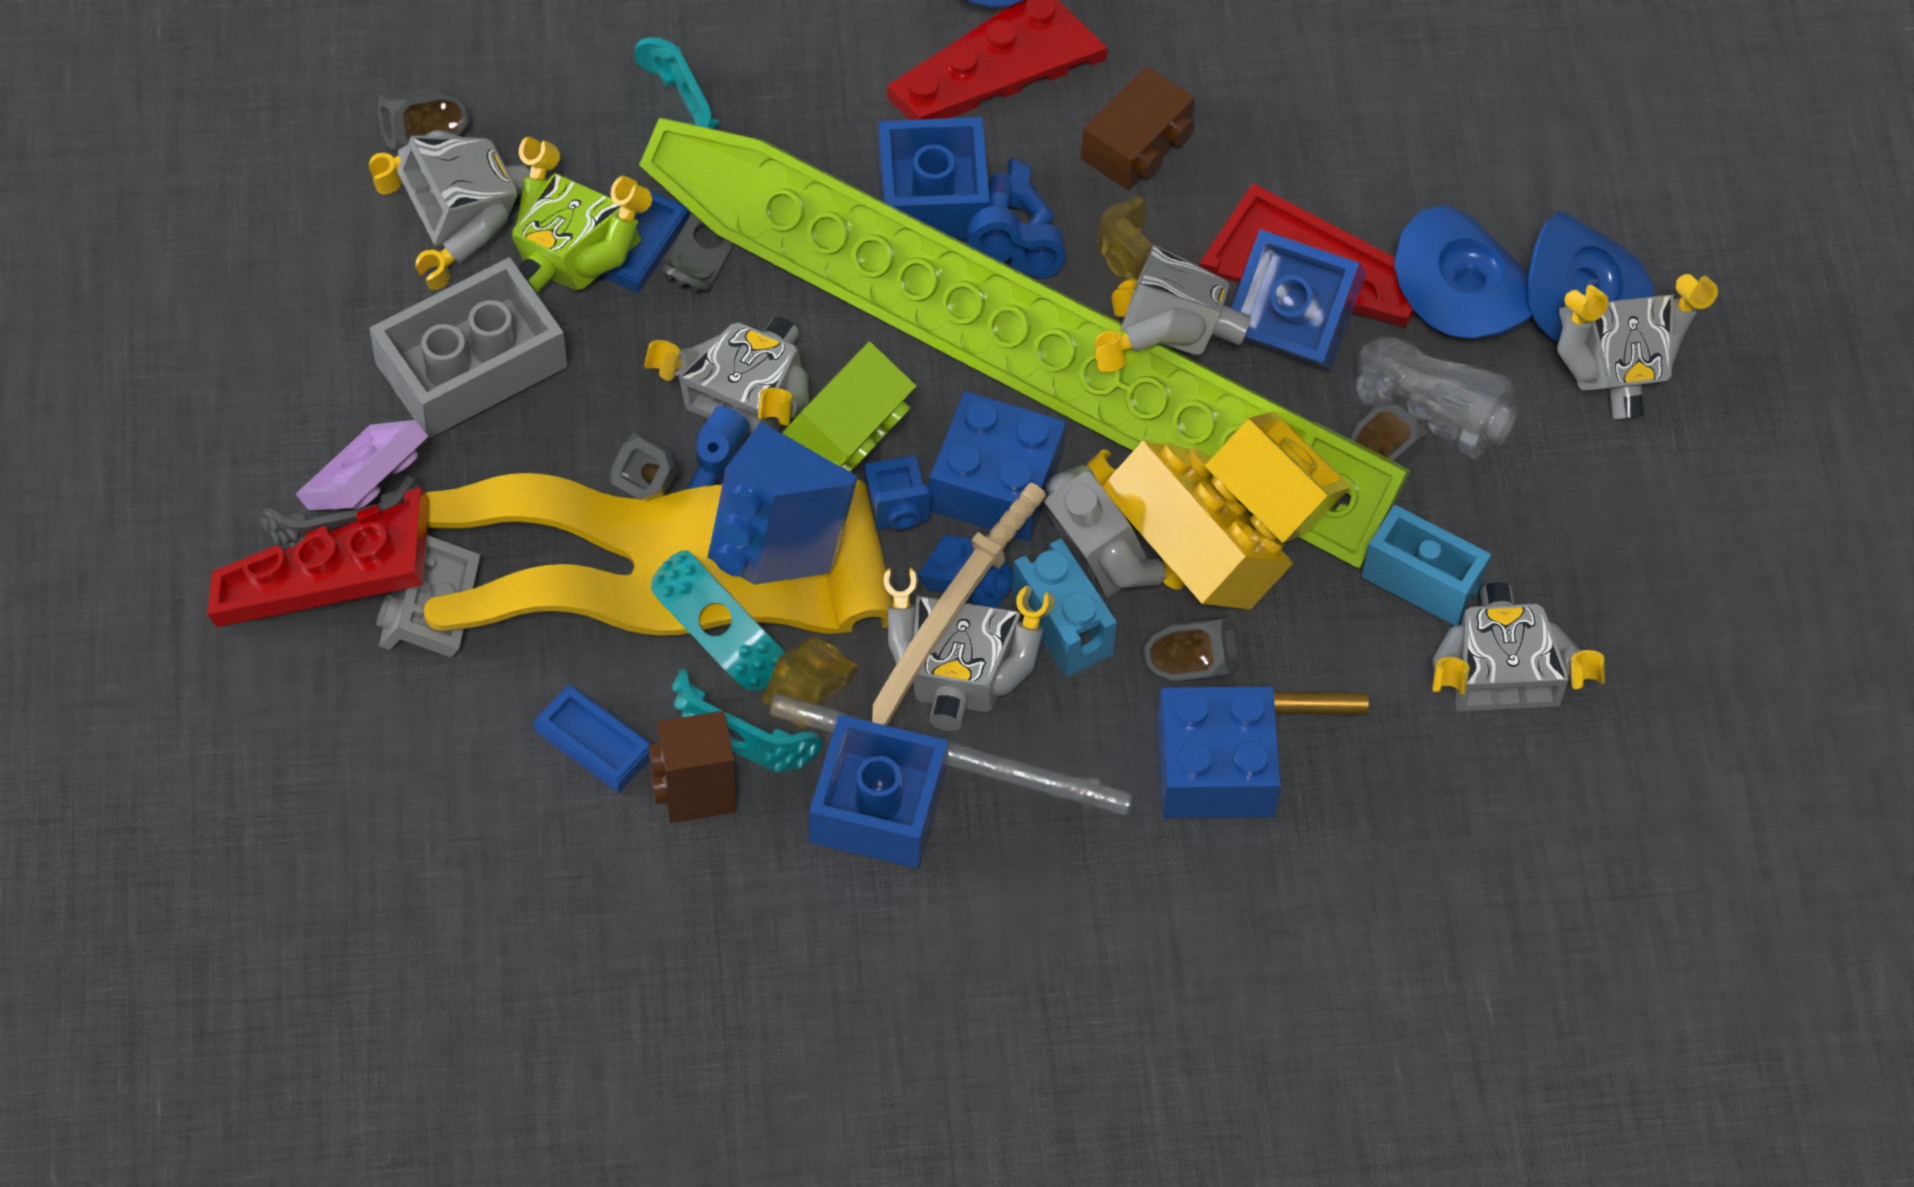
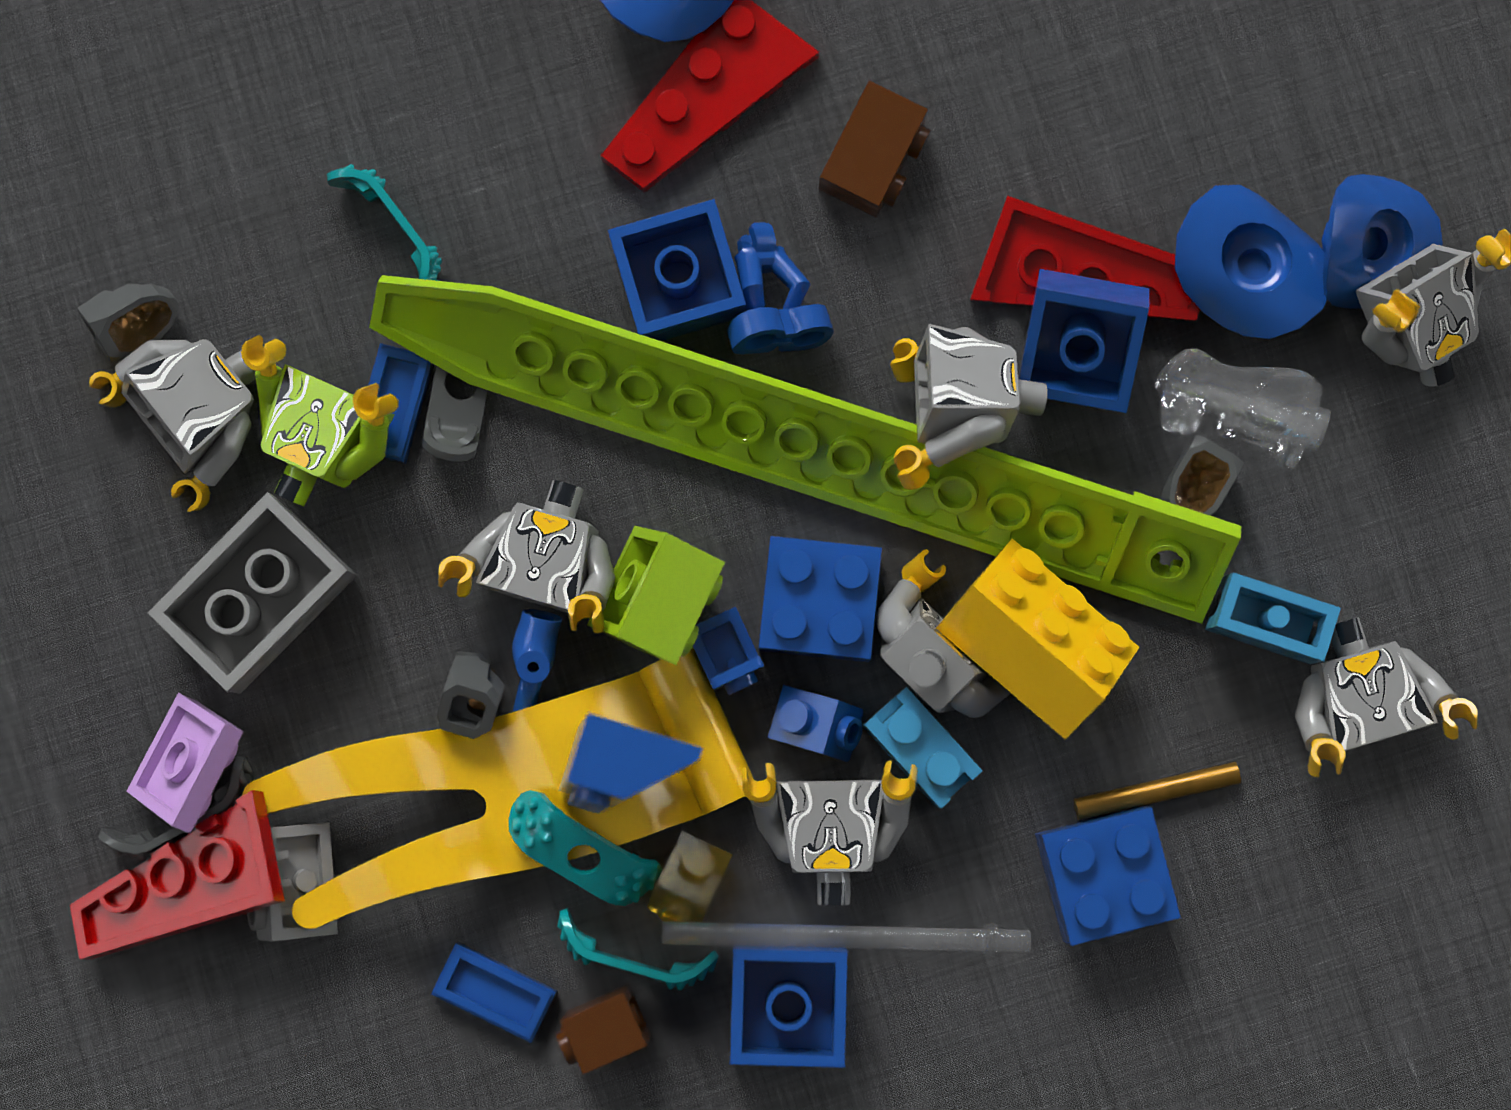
camera: 10 degrees left, 25 degrees up
(987, 552) = (836, 728): tan sword -> none
(1121, 238) = (893, 306): clear yellow bracket -> none
(1193, 649) = (1059, 766): rock -> none
(1276, 477) = (1114, 580): yellow brick -> none

